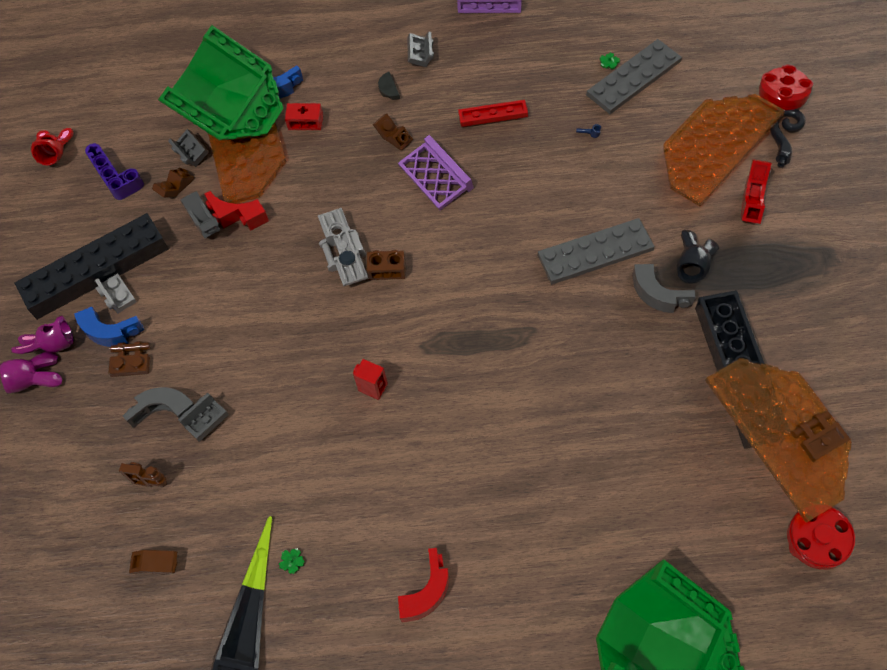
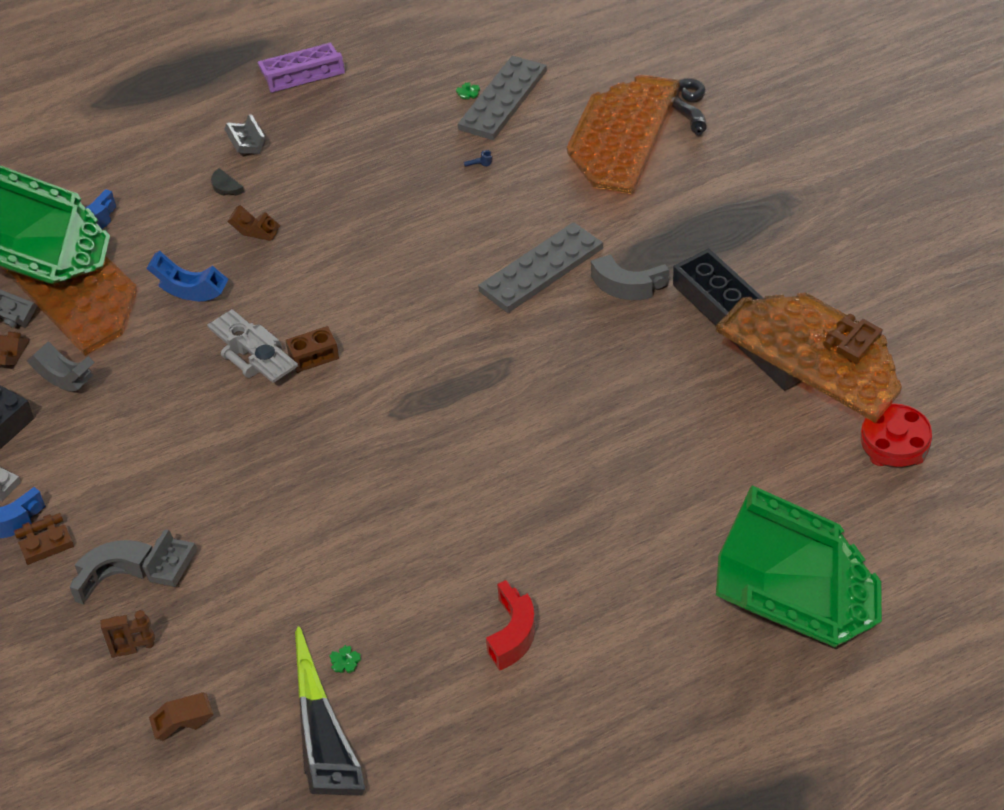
camera: 25 degrees left, 15 degrees down
(227, 213) = (121, 350): red arch -> none
(304, 116) = (138, 238): red brick -> none
(328, 175) = (187, 284): none -> blue arch
(370, 379) = (351, 455): red brick -> none
(448, 166) = (336, 235): medium lavender fence -> none
(492, 113) = (361, 173): red plate -> none
(695, 256) = (651, 236): black piece -> none
(754, 191) = (685, 170): red arch -> none
(785, 87) = (670, 60): red piece -> none

